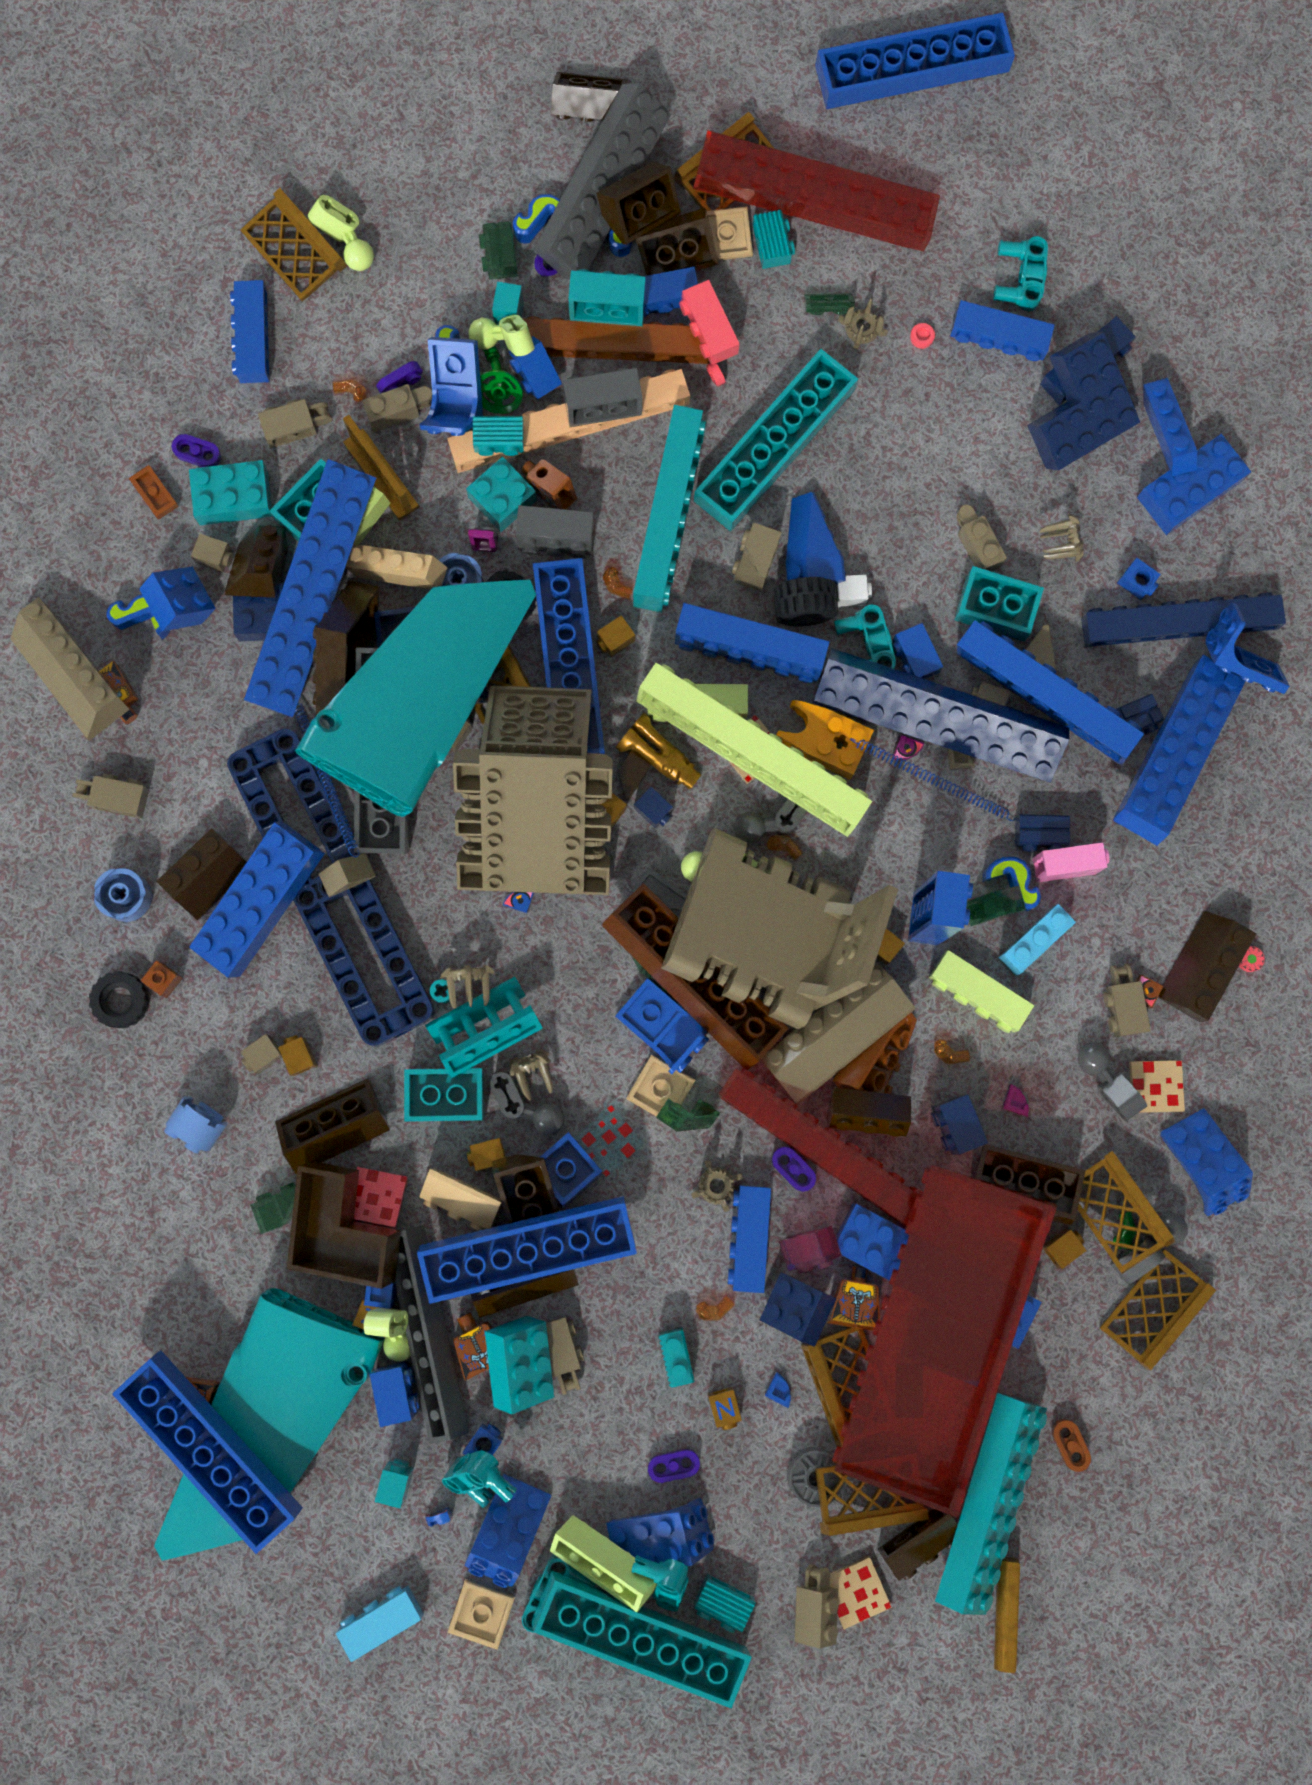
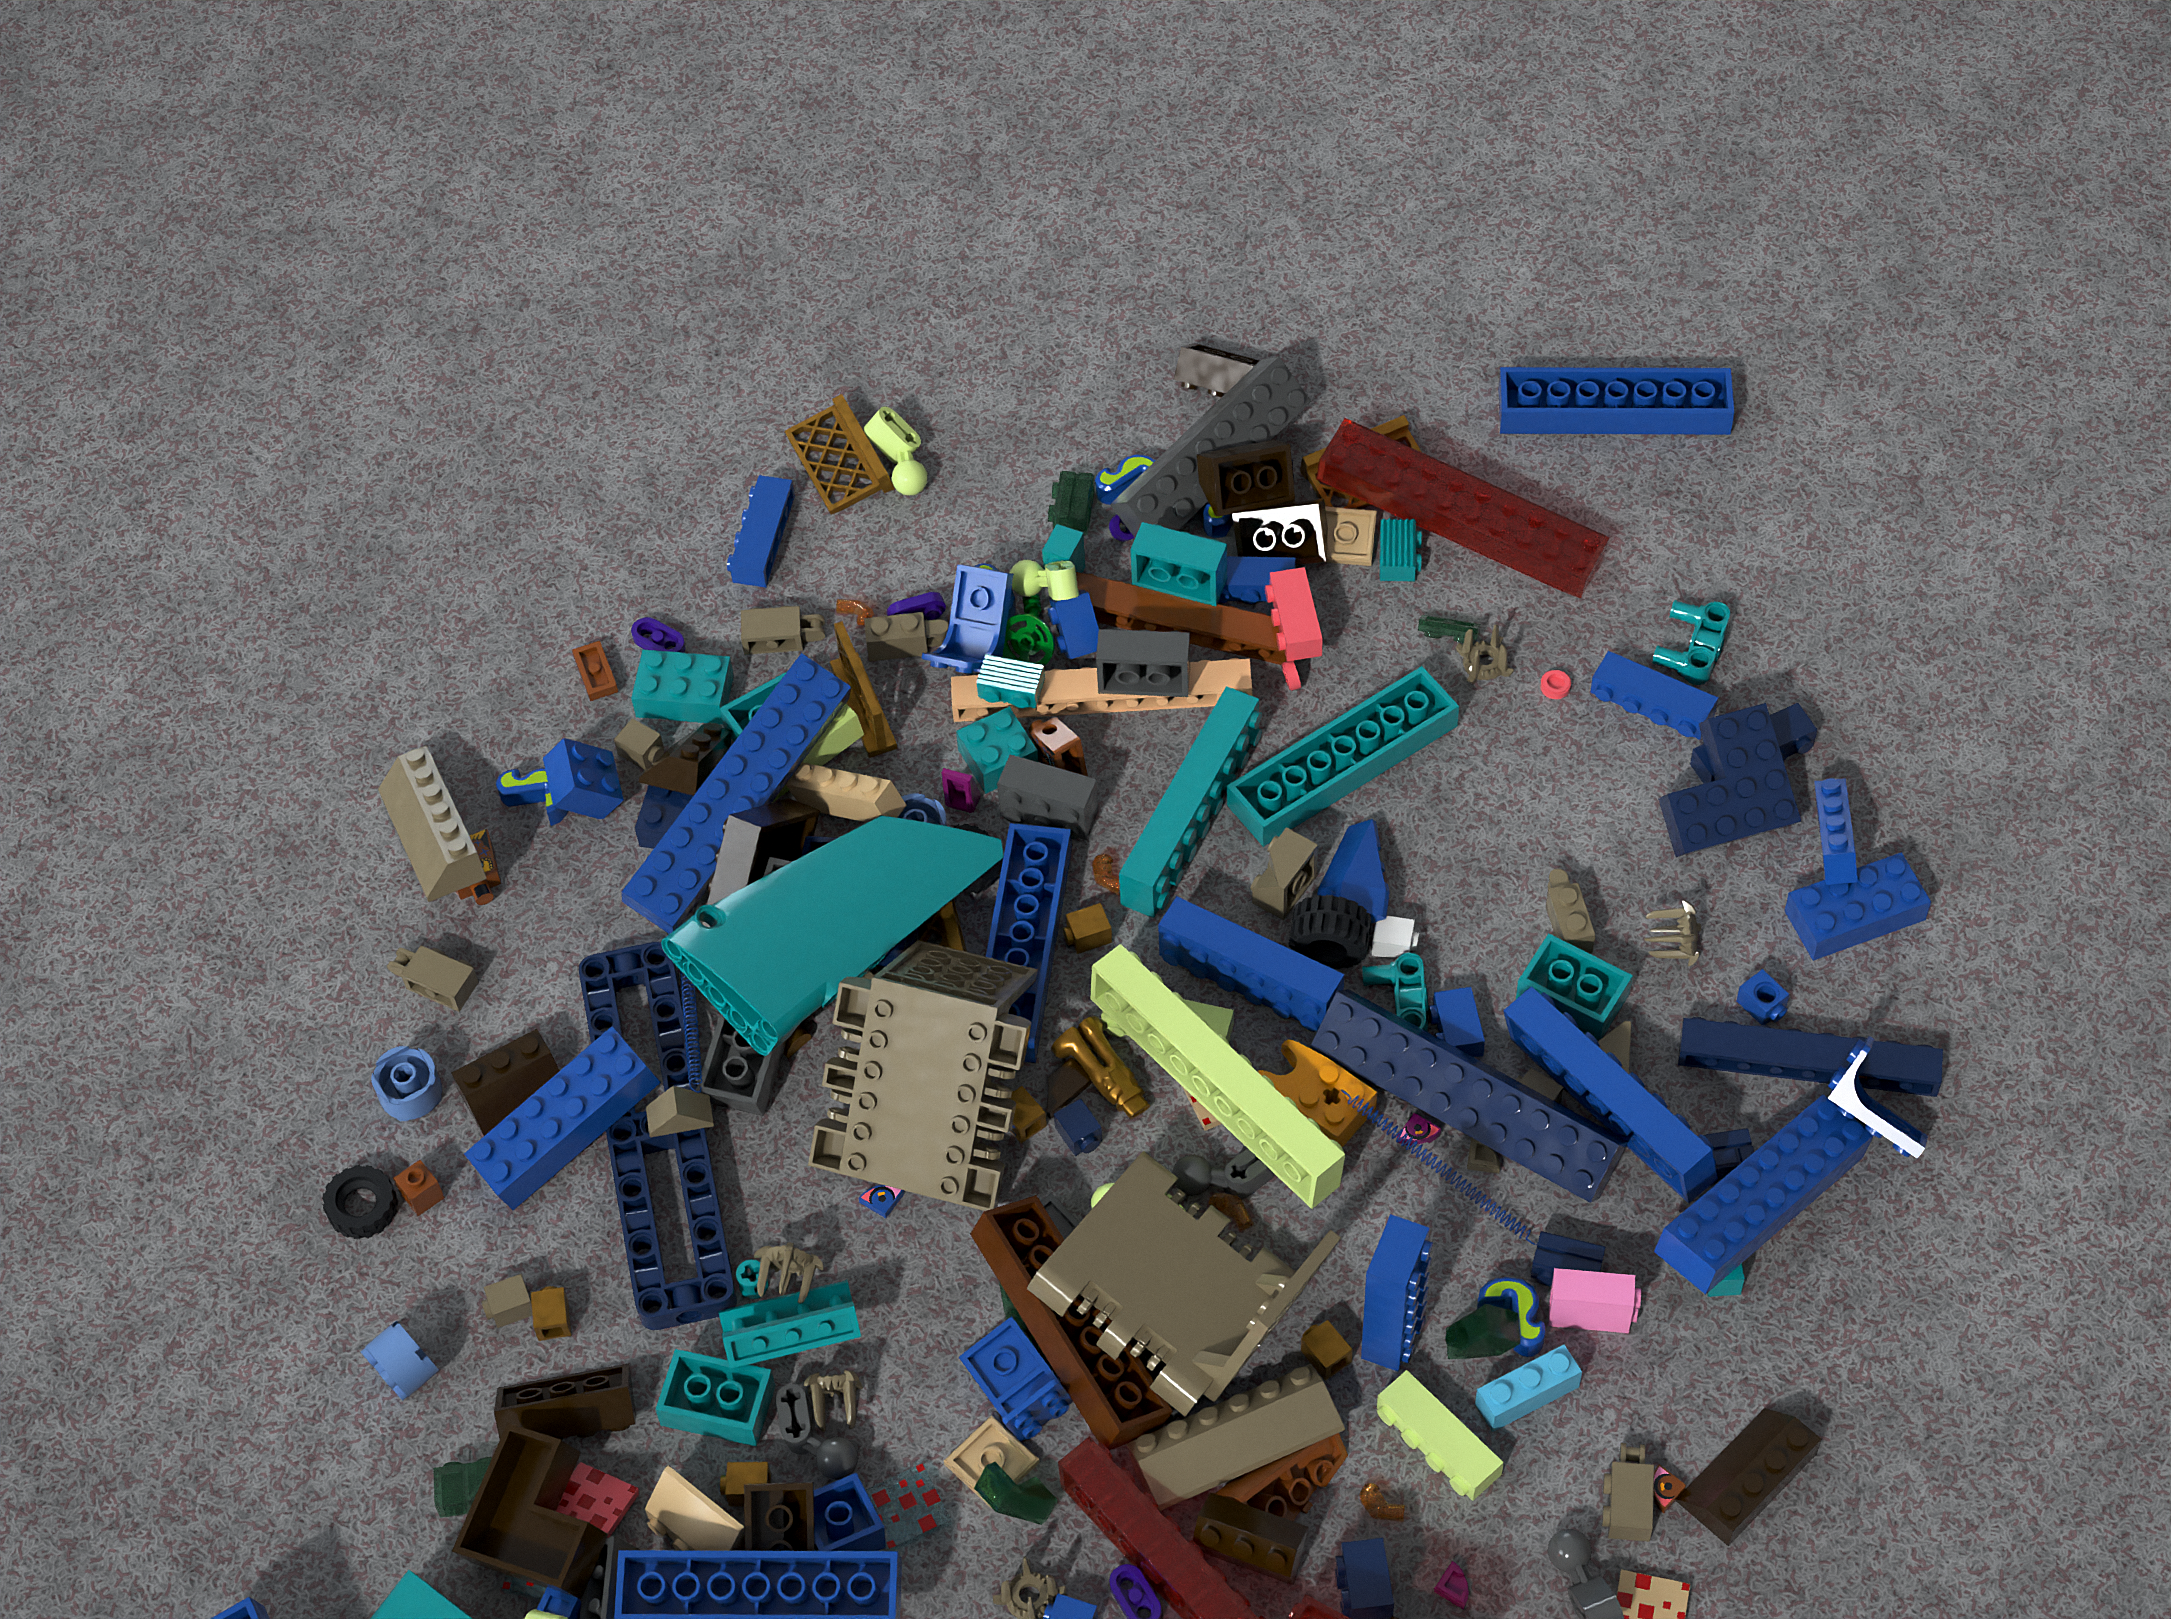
camera: 25 degrees right, 25 degrees down
(1252, 960) = (1813, 1481): coral tile -> none

